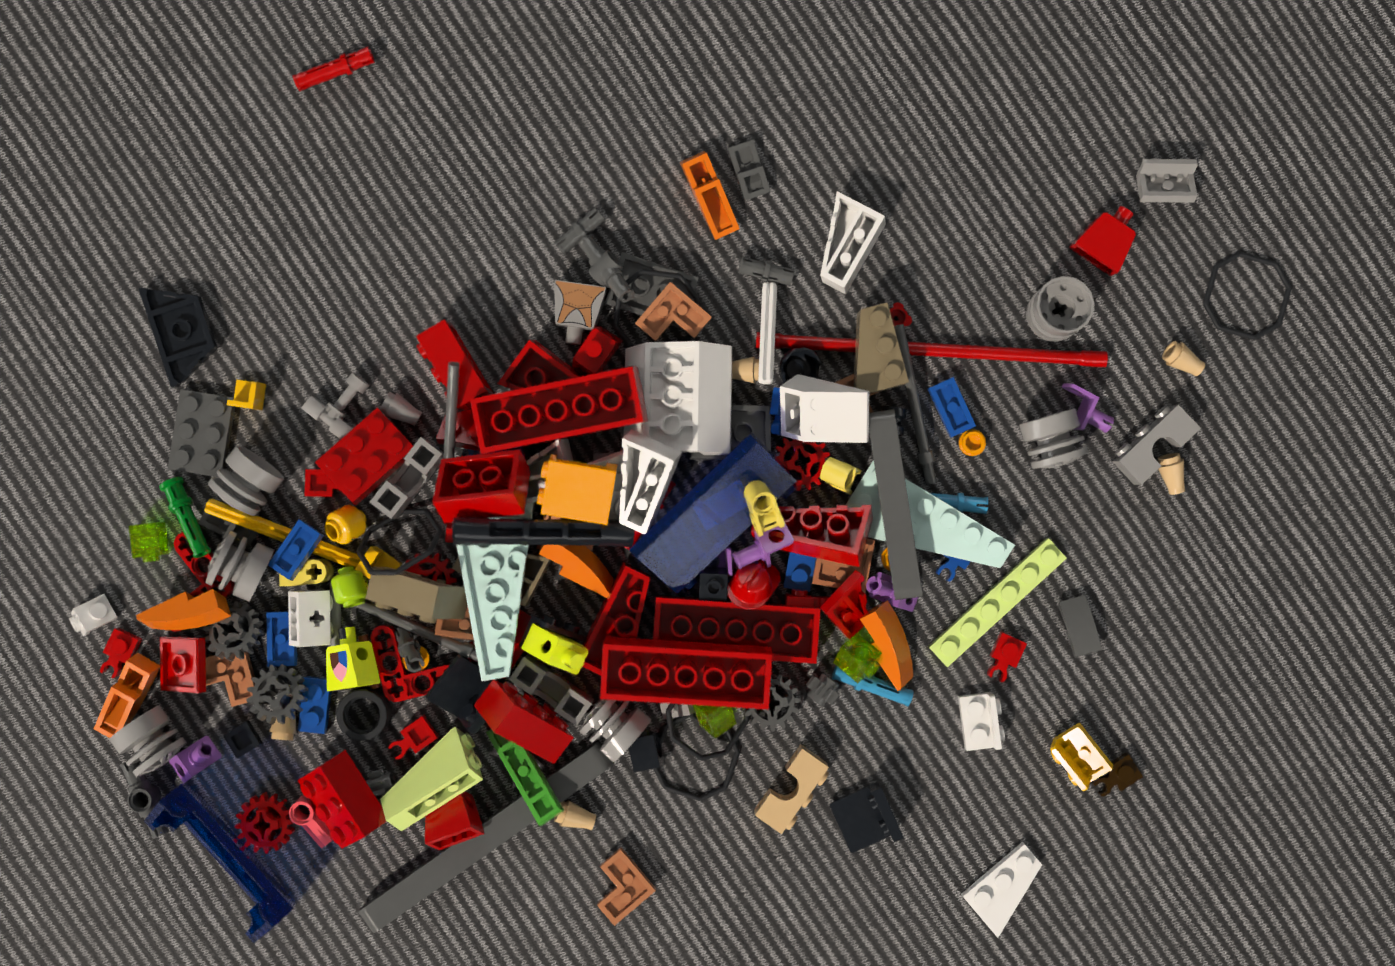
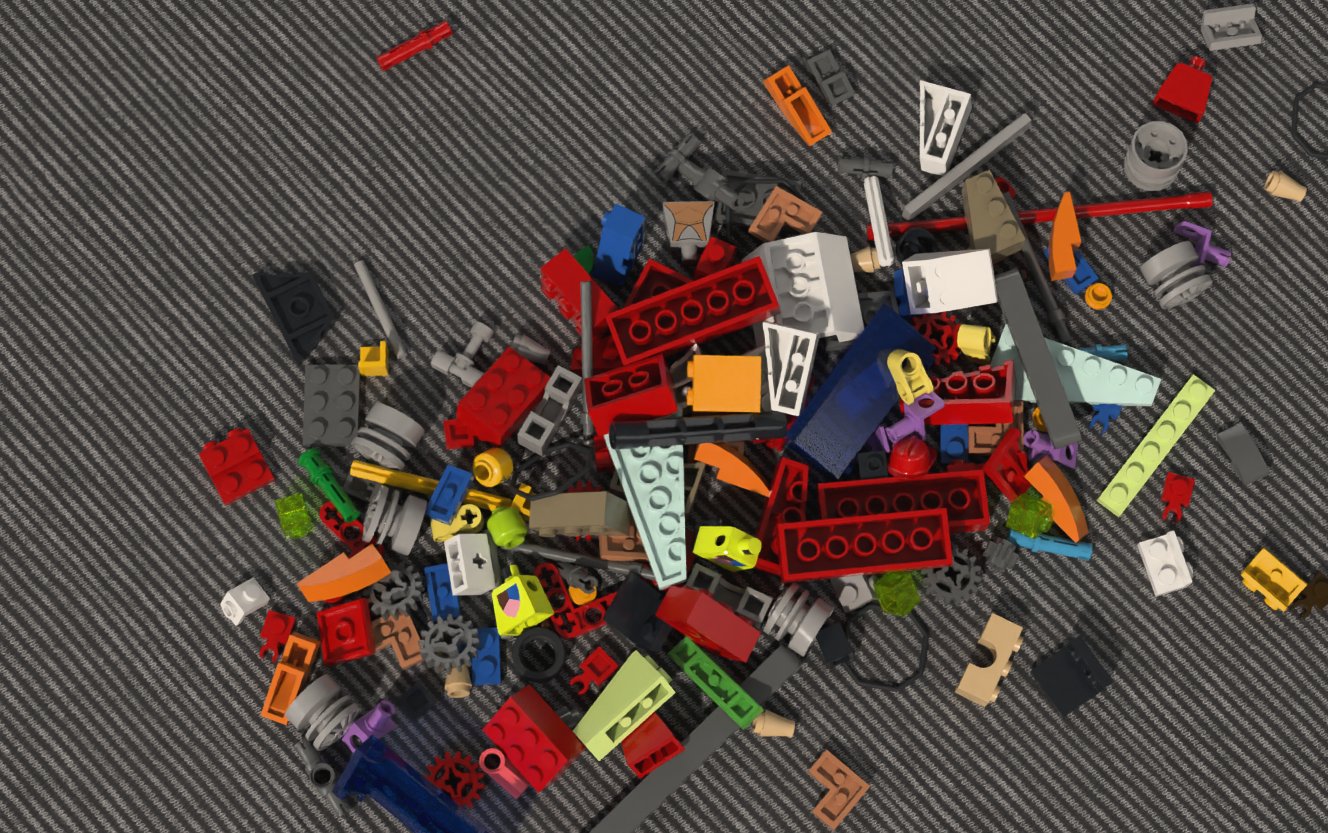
camera: 10 degrees left, 15 degrees down
(100, 480) = (236, 465): none -> red plate
(262, 342) = (380, 309): none -> light grey bar
(468, 327) = (585, 259): none -> green tile
(501, 321) = (619, 245): none -> blue wedge
(707, 756) = (876, 631): black piece -> none
(867, 288) = (966, 167): none -> light grey tile
(948, 381) = (1063, 240): none -> orange slope
(1003, 887) = (1224, 729): white wing -> none
(1137, 459) = (1263, 286): light grey arch -> none
(1172, 472) = (1299, 293): tan cone -> none

